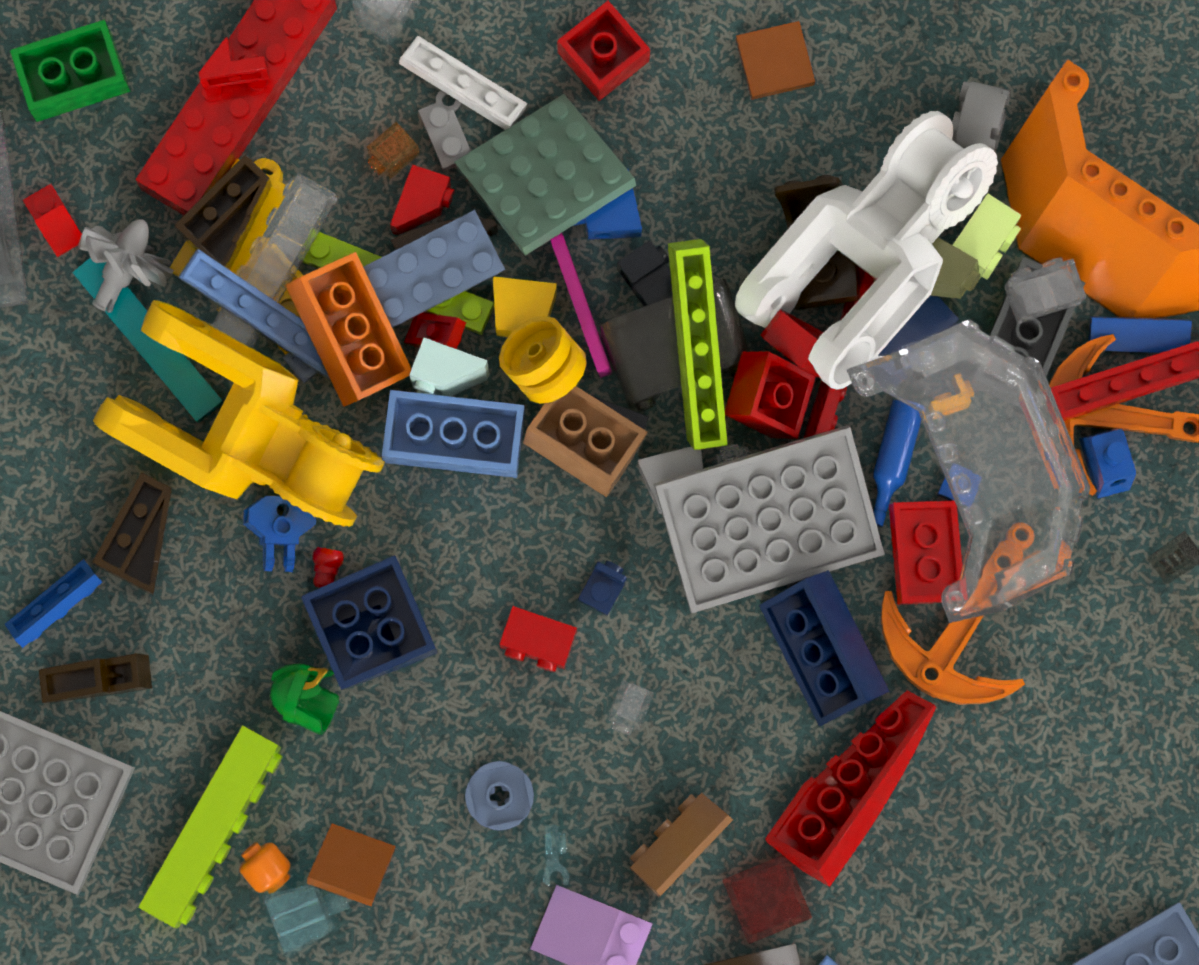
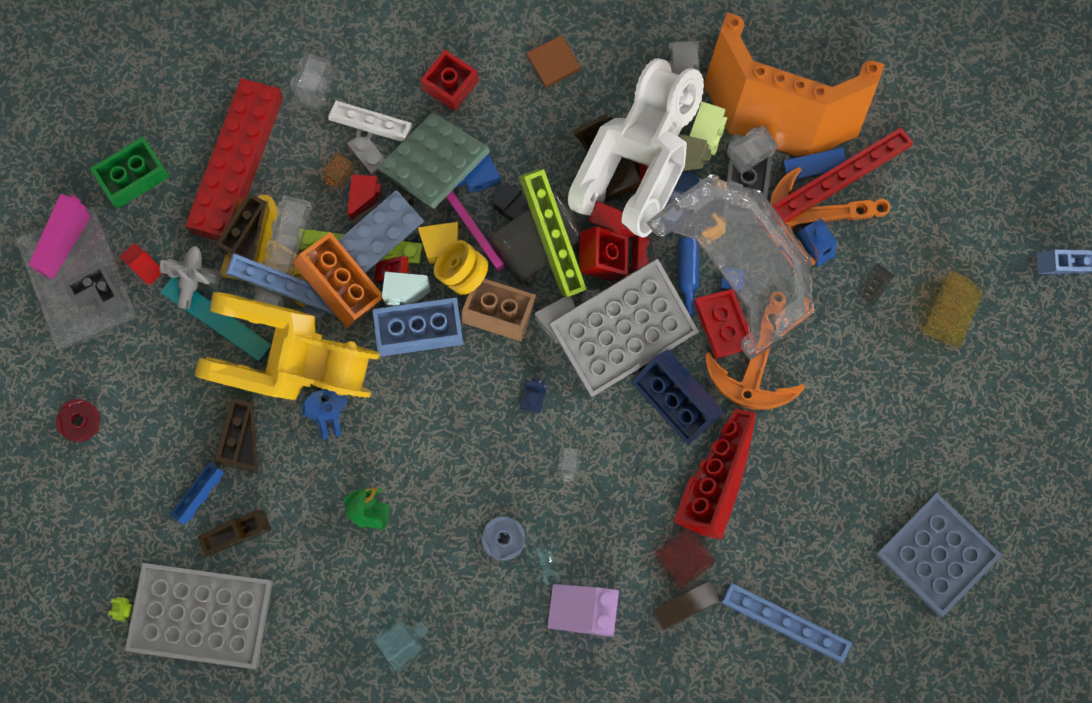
camera: 10 degrees left, 5 degrees down
(210, 827) = (329, 604): lime brick -> none
(224, 71) = (223, 146): red slope -> none
(265, 867) = (369, 620): orange head -> none
(326, 565) = (360, 427): red piece -> none
(351, 864) = (422, 604): dark orange tile -> none
(369, 623) = (396, 453): dark blue slope -> none
(537, 639) = (501, 437): red brick -> none
(679, 843) = (622, 537): medium nougat slope -> none

